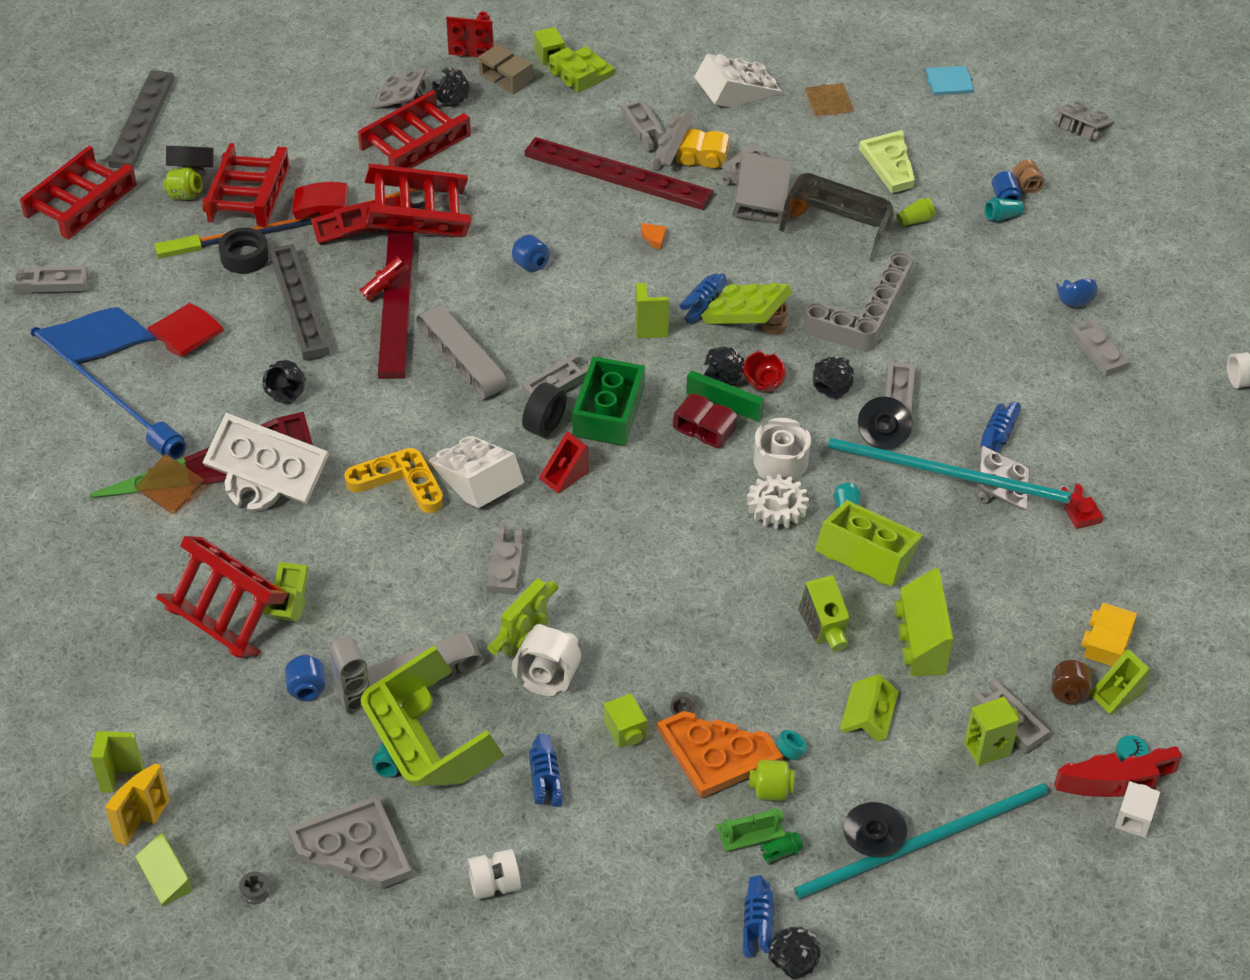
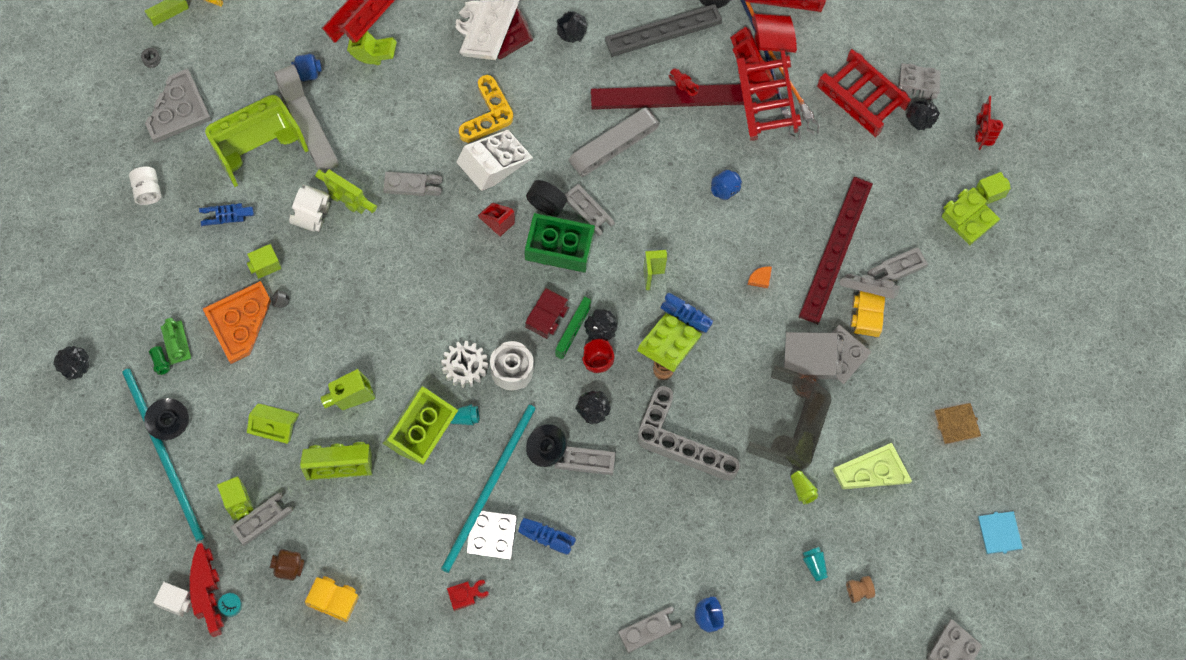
camera: 85 degrees right, 20 degrees up
(500, 63) = (955, 157): dark tan piece -> none
(734, 80) = (966, 343): white slope -> none
(758, 916) = (106, 344): blue hinge -> none
(772, 780) = (209, 353): lime head -> none
(791, 744) = (241, 368): teal tile -> none
(1006, 186) = (842, 567): blue brick -> none
(1122, 683) = (284, 601): lime slope -> none

